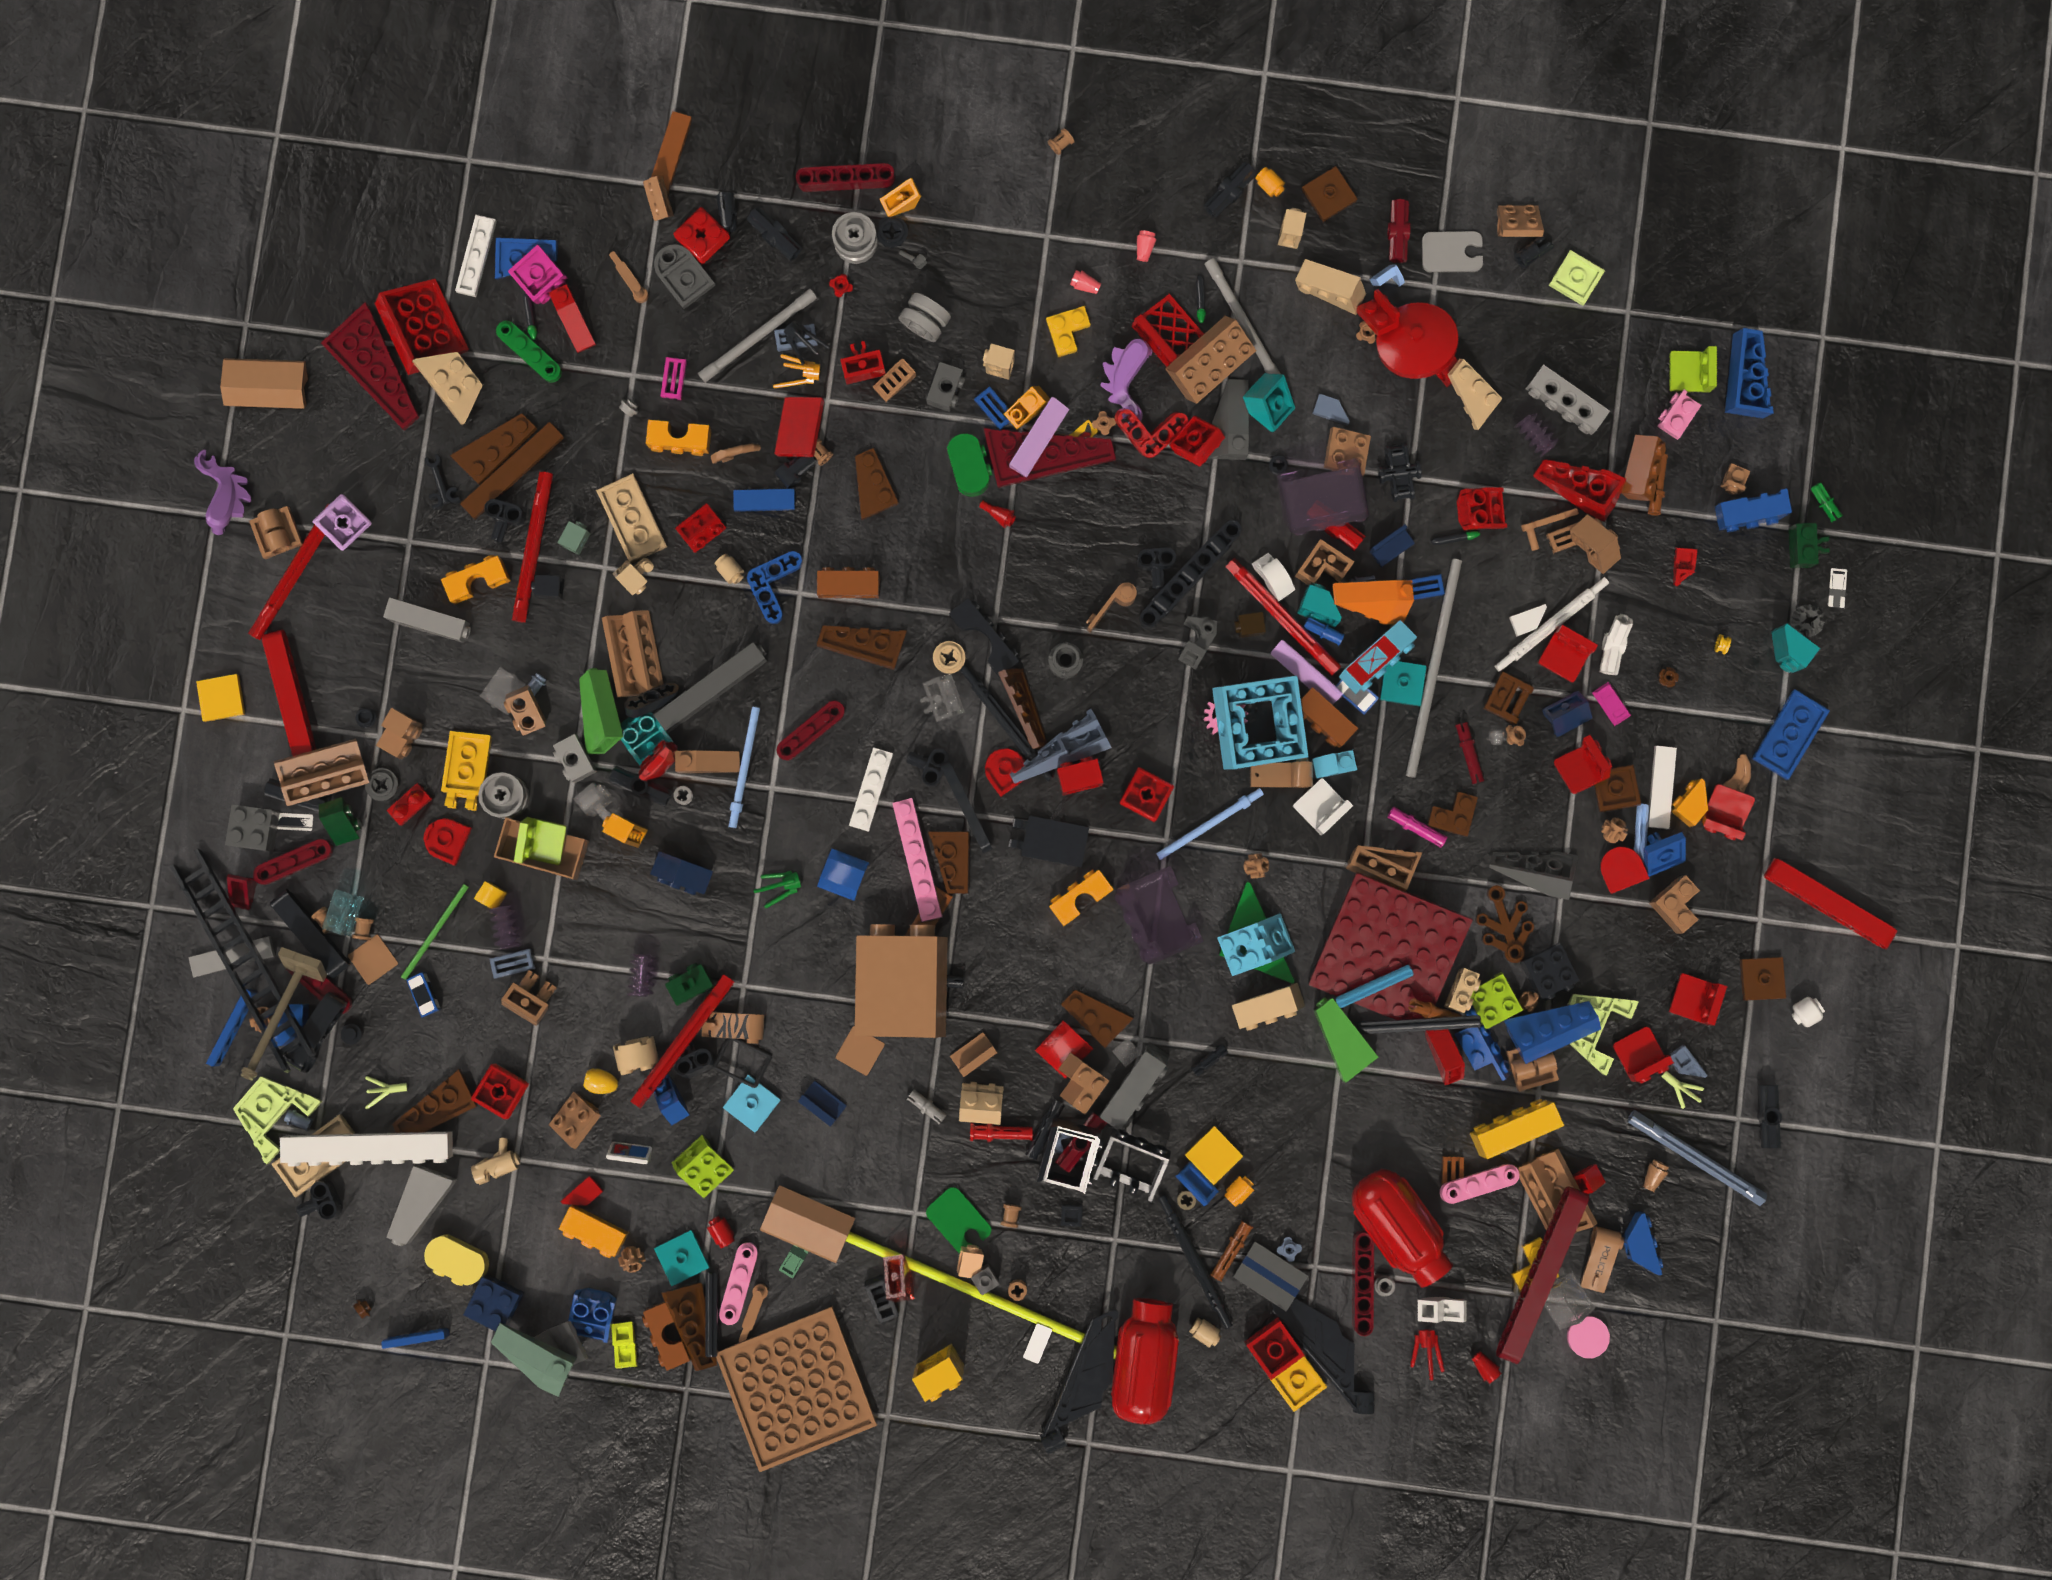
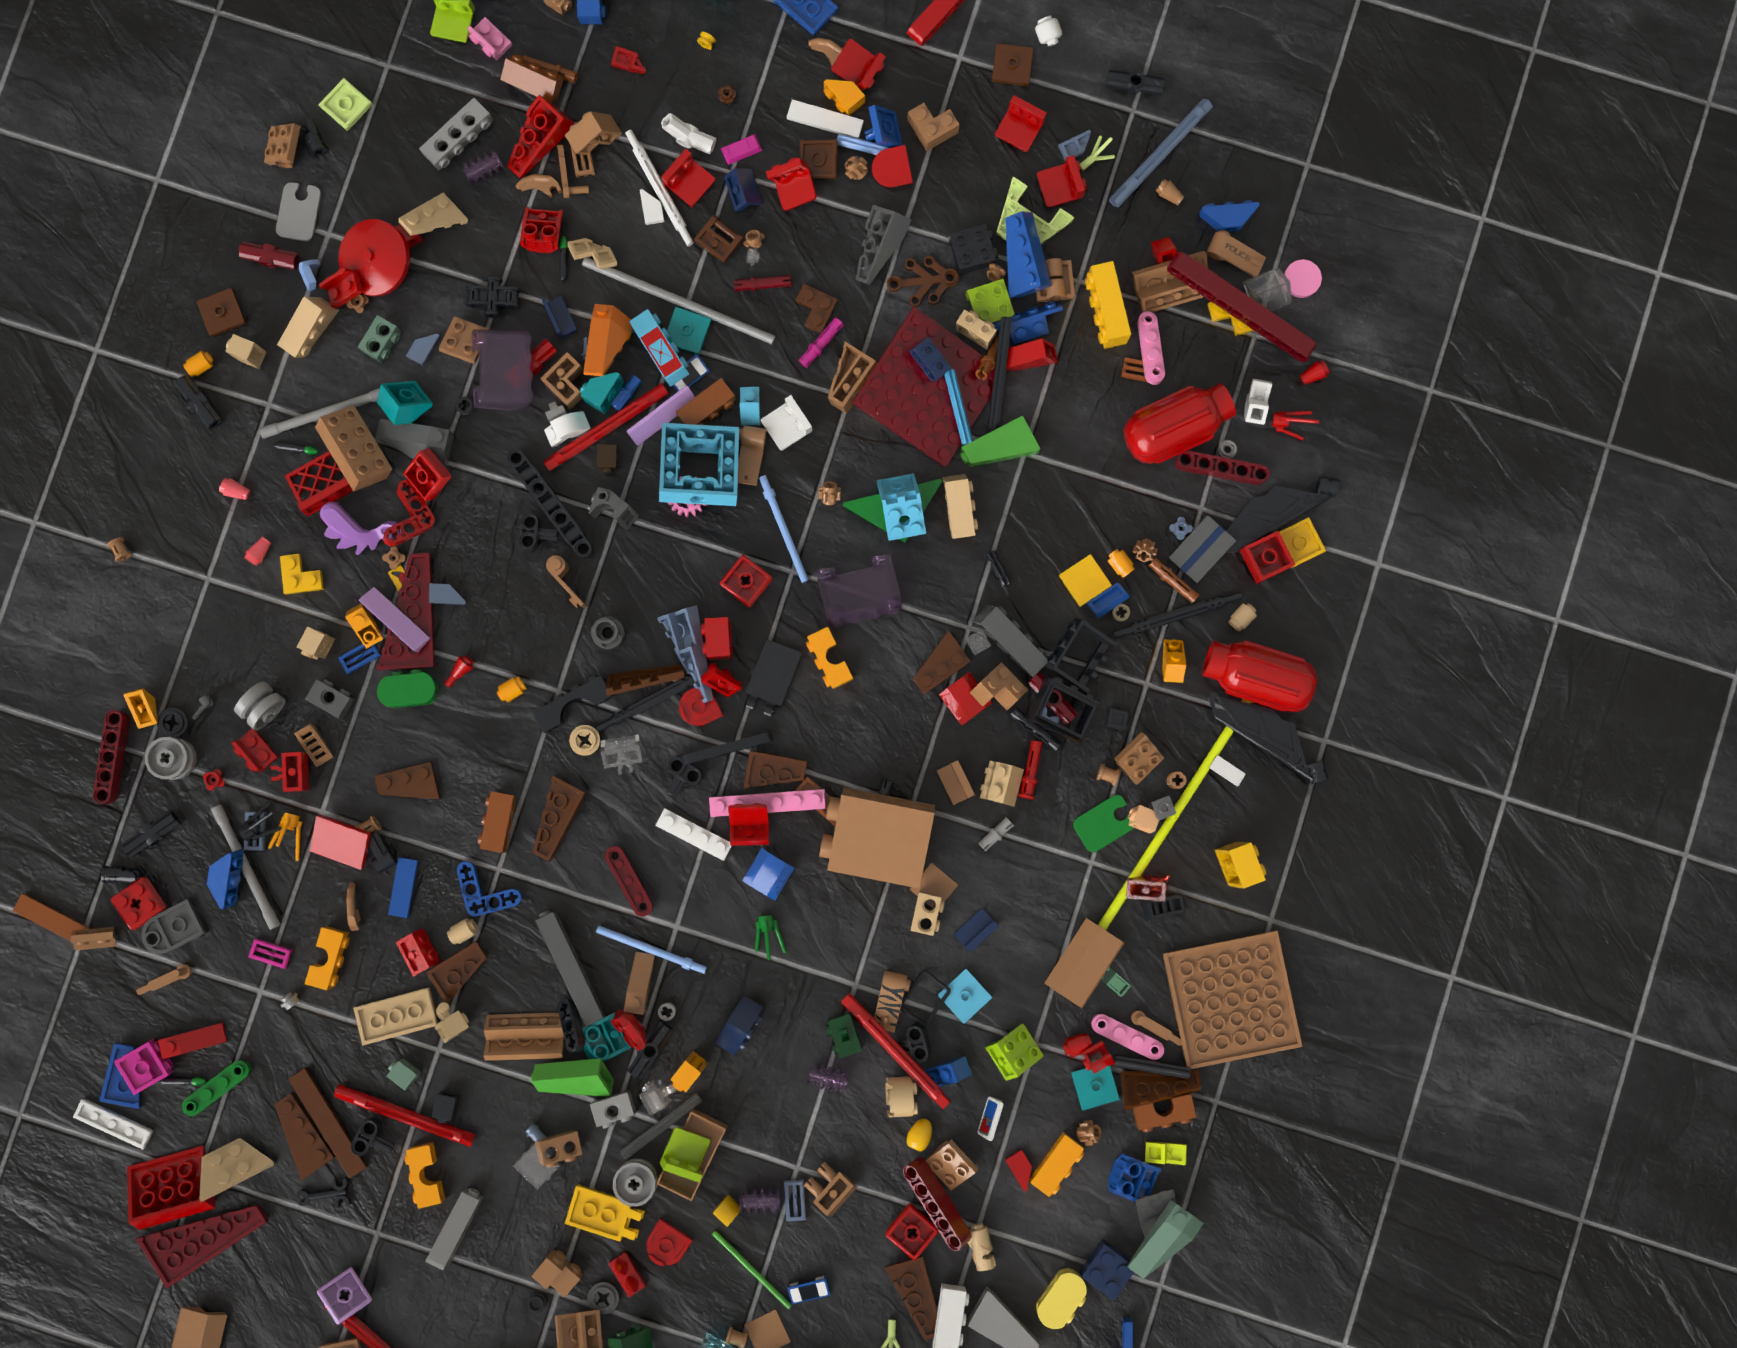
camera: 75 degrees left, 0 degrees up
(532, 1112) = (937, 1204): none -> dark red beam
(567, 813) = (661, 1126): none -> dark grey axle
(688, 570) = (456, 970): none -> reddish brown wing
(710, 1254) = (1097, 1058): none -> red window
(741, 317) = (225, 879): none -> blue slope
(830, 1043) = (922, 912): none -> tan brick
(877, 321) = (255, 751): none -> red bracket
(890, 845) = (748, 824): none -> red bracket
(988, 571) = (511, 689): none -> light orange brick
(1033, 1245) = (1138, 758): none -> medium nougat plate
(1035, 787) = (721, 680): none -> red tile
(1074, 482) = (444, 595): none -> sand blue tile
(1144, 1265) = (1173, 661): none -> light orange slope
(1257, 1214) = (1145, 550): none -> medium nougat gear
(1288, 561) = (555, 411): none -> light grey tile
(1333, 357) = (375, 337): none -> sand green brick
(1418, 947) = (930, 359): none -> dark blue brick
(1431, 594) = (611, 290): blue tile -> none
(1471, 559) = (585, 248): none -> tan tile
(1533, 498) = (541, 182): none -> medium nougat piece

